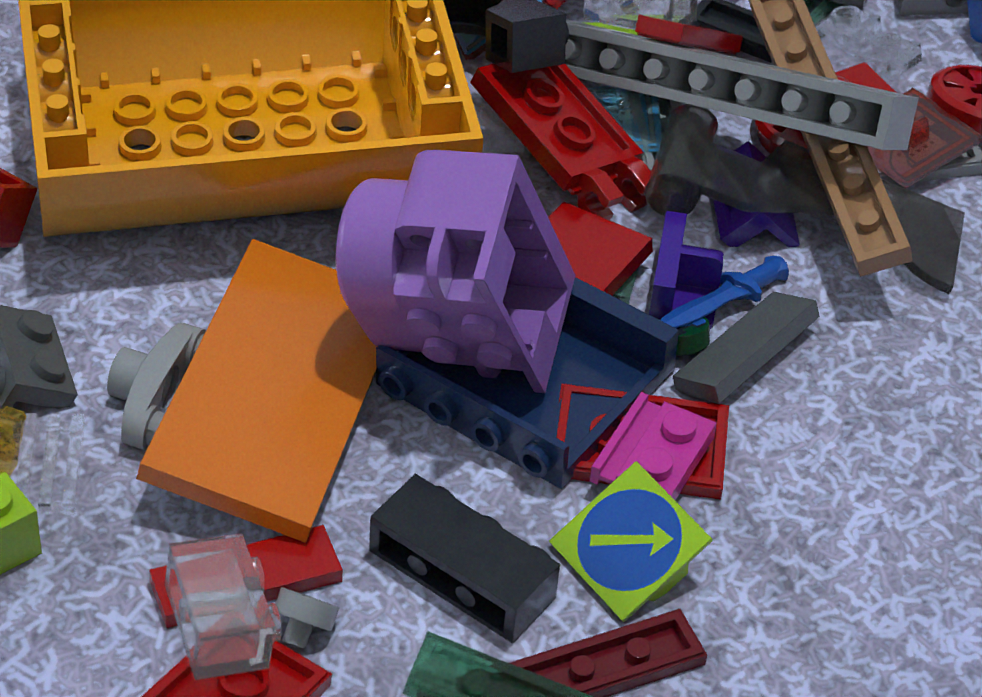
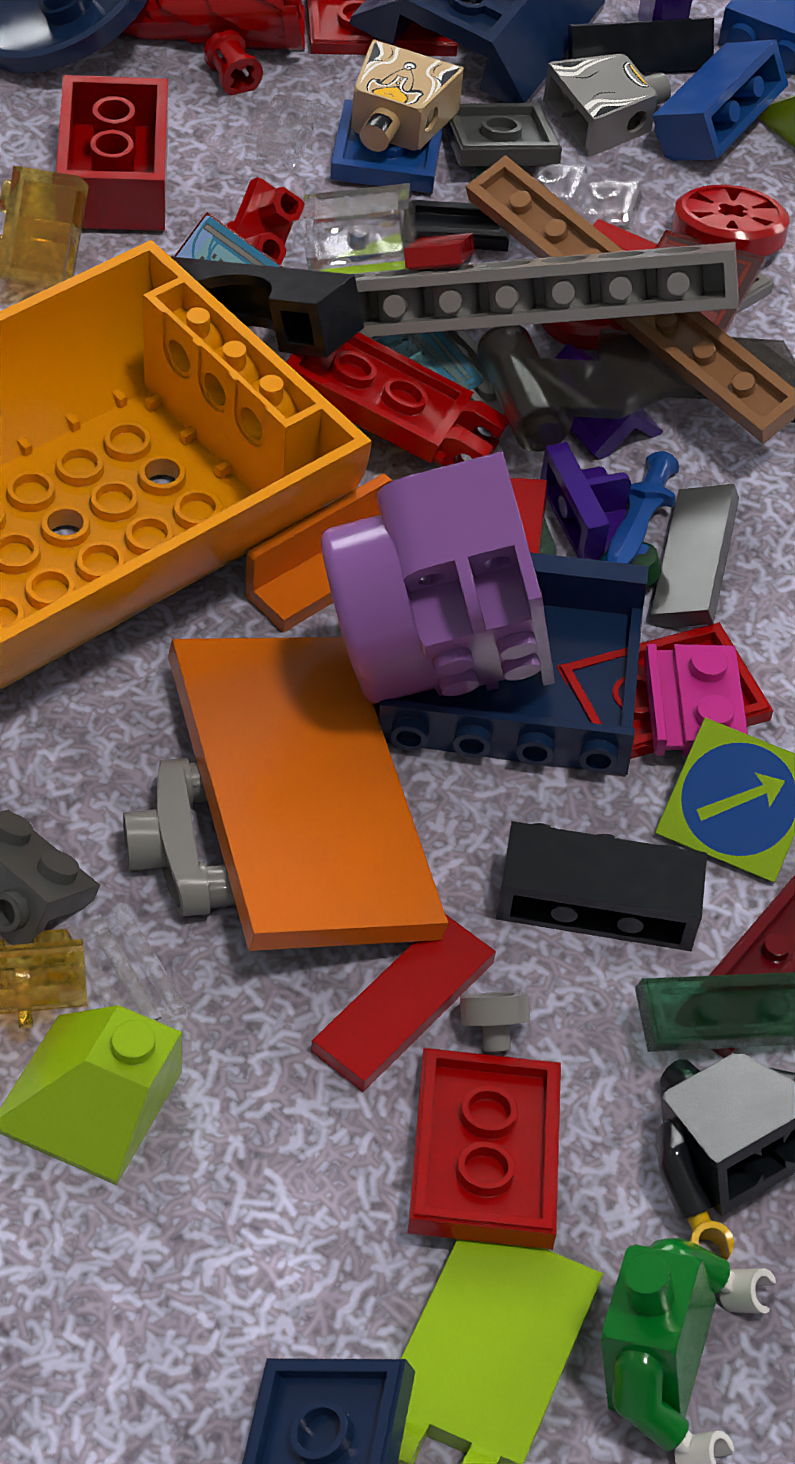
camera: 30 degrees left, 5 degrees up
(221, 606) = (429, 1046): clear brick -> none

